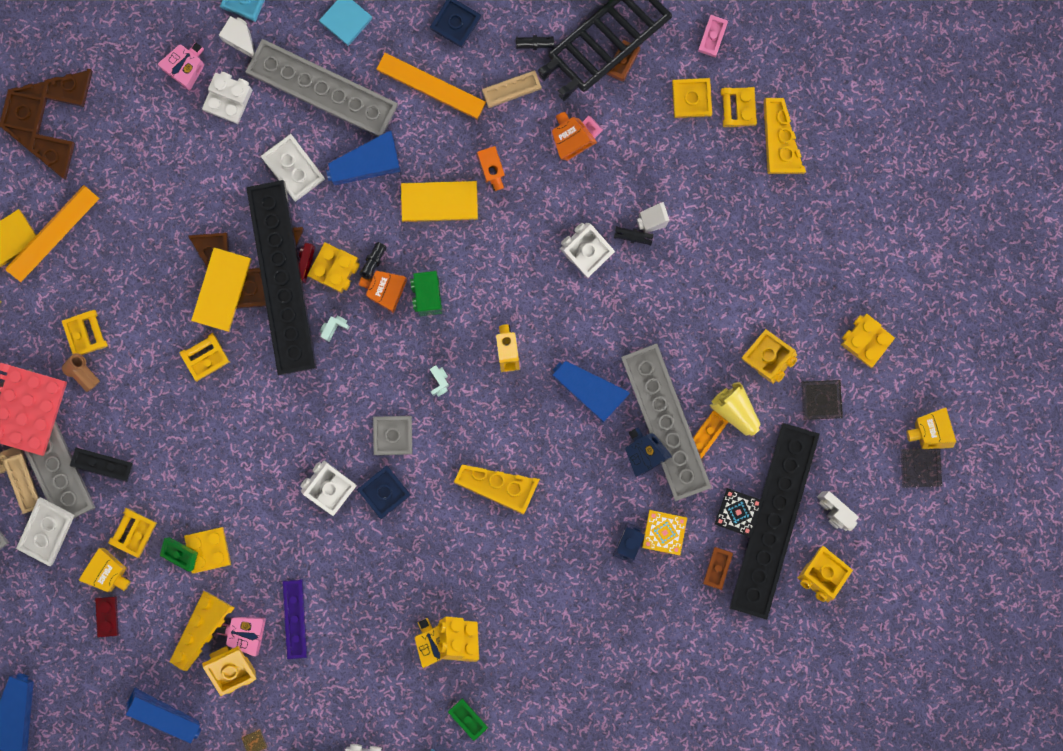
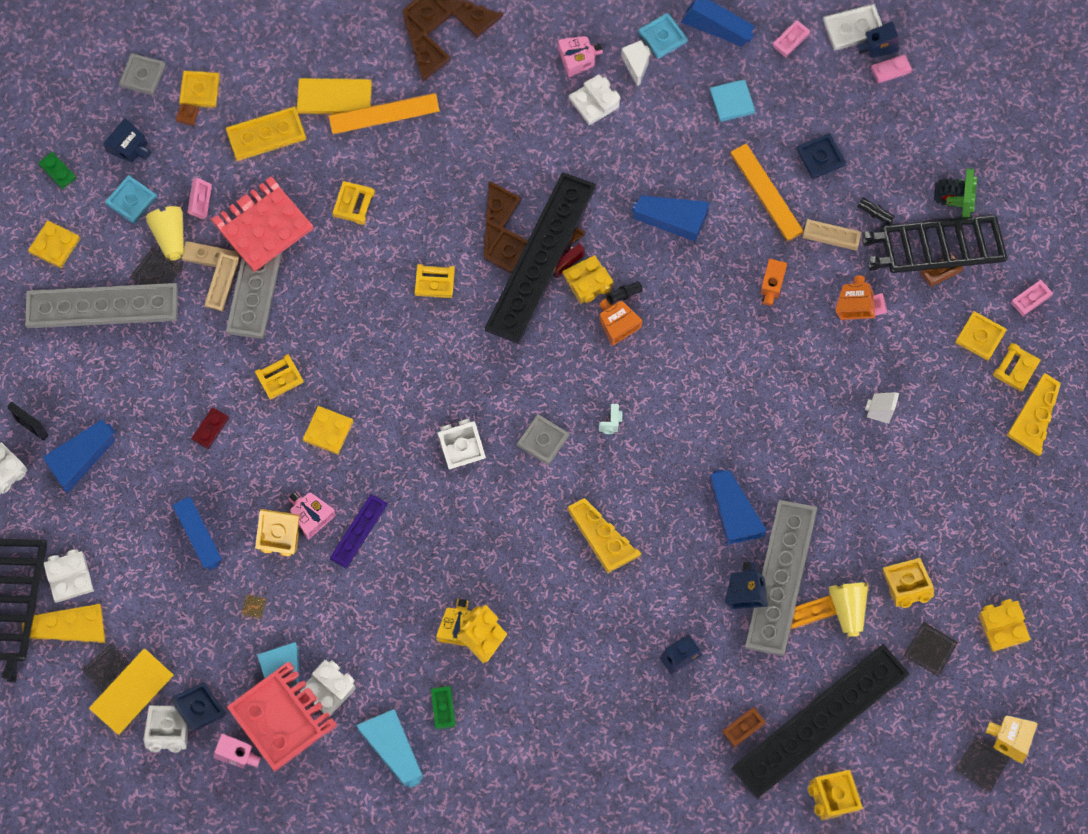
camera: 40 degrees right, 15 degrees down
(45, 531) = (212, 329): white tile -> none
(76, 367) = (328, 224): medium nougat piece -> none
(101, 464) = (293, 308): black plate -> none
(105, 572) = (235, 391): yellow torso -> none
(178, 554) = (303, 415): green plate -> none
(205, 619) = (275, 486): yellow wing -> none
(221, 289) = (486, 236): yellow tile -> none
(293, 166) = (611, 184): white tile -> none
(321, 88) = (676, 139): light grey plate -> none
(329, 328) = (552, 322): light aqua bracket -> none
(384, 492) = (504, 478): dark blue plate -> none
(427, 293) = (650, 344): green brick -> none
(439, 201) = (711, 283): yellow tile -> none
(507, 354) = (686, 432): yellow torso -> none
(586, 249) = (808, 396): white plate -> none
(633, 235) = (856, 411): black pin -> none
(664, 532) = (718, 668): yellow tile -> none
(739, 512) = (794, 692): black tile -> none
(840, 514) = (883, 750): white plate -> none

